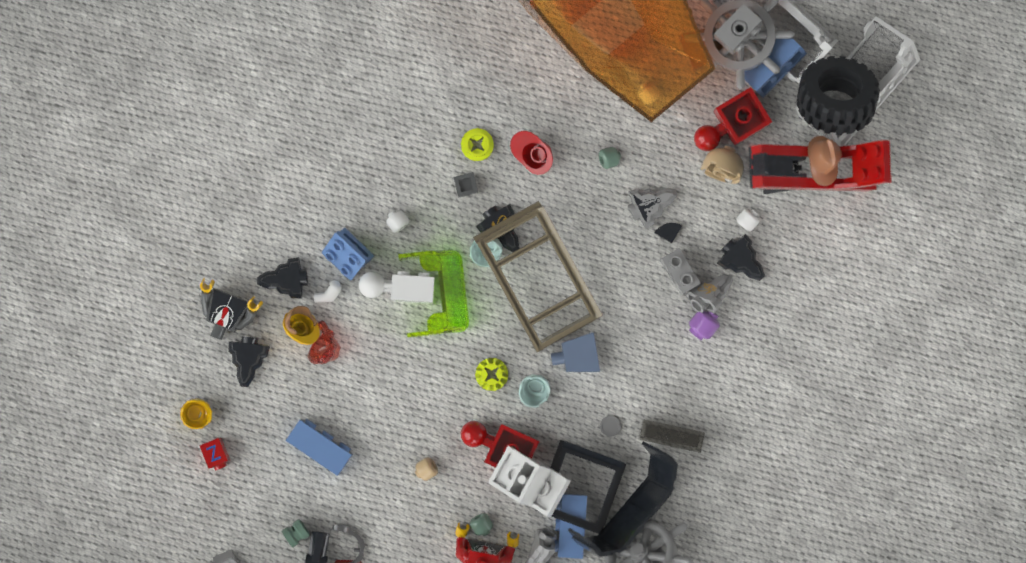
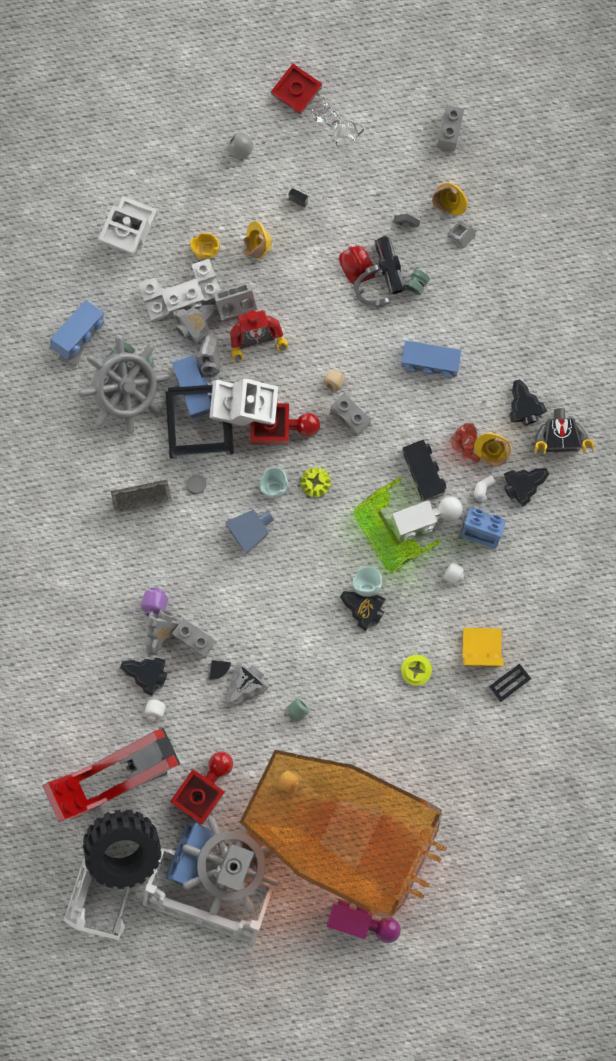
camera: 160 degrees right, 5 degrees down
(191, 410) = (549, 338): yellow hair -> none
(215, 454) = (514, 315): red brick -> none
(379, 336) = (424, 470): none -> black brick
(394, 100) = (522, 672): none -> black tile
(403, 136) = (482, 647): none -> yellow bracket
(426, 425) = (350, 414): none -> light grey brick
(465, 185) = (410, 630): dark grey plate -> none
(481, 524) = (268, 356): sand green piece -> none
(531, 152) = (366, 683): red piece -> none
(583, 292) = (356, 610): dark tan piece -> none
(637, 509) = (144, 419): black windscreen -> none
(722, 164) = (196, 747): tan cylinder -> none
(824, 160) = (110, 784): nougat piece -> none

